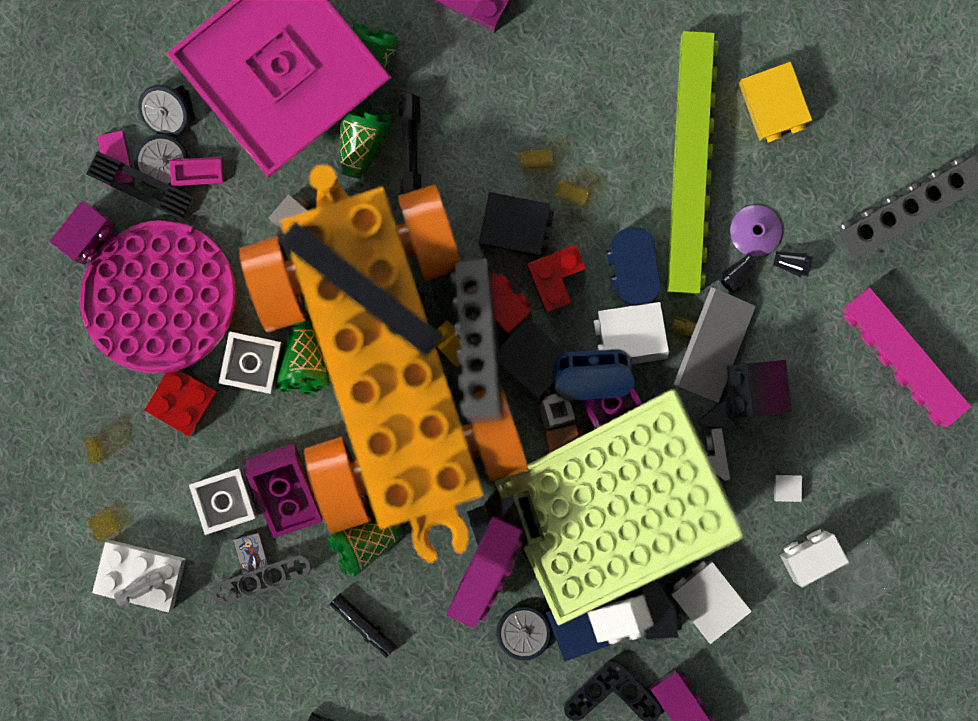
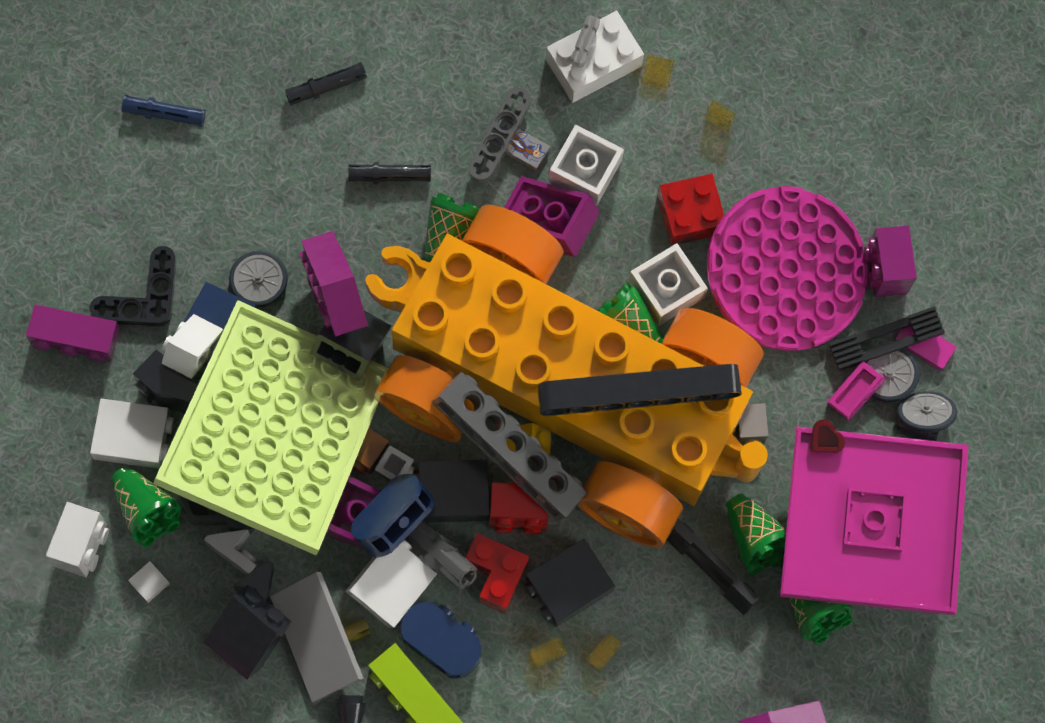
camera: 130 degrees right, 15 degrees down
(257, 149) = (825, 438): none -> dark red tile
(584, 318) = (442, 555): none -> dark grey piece
(748, 552) = (145, 507): none -> green cone

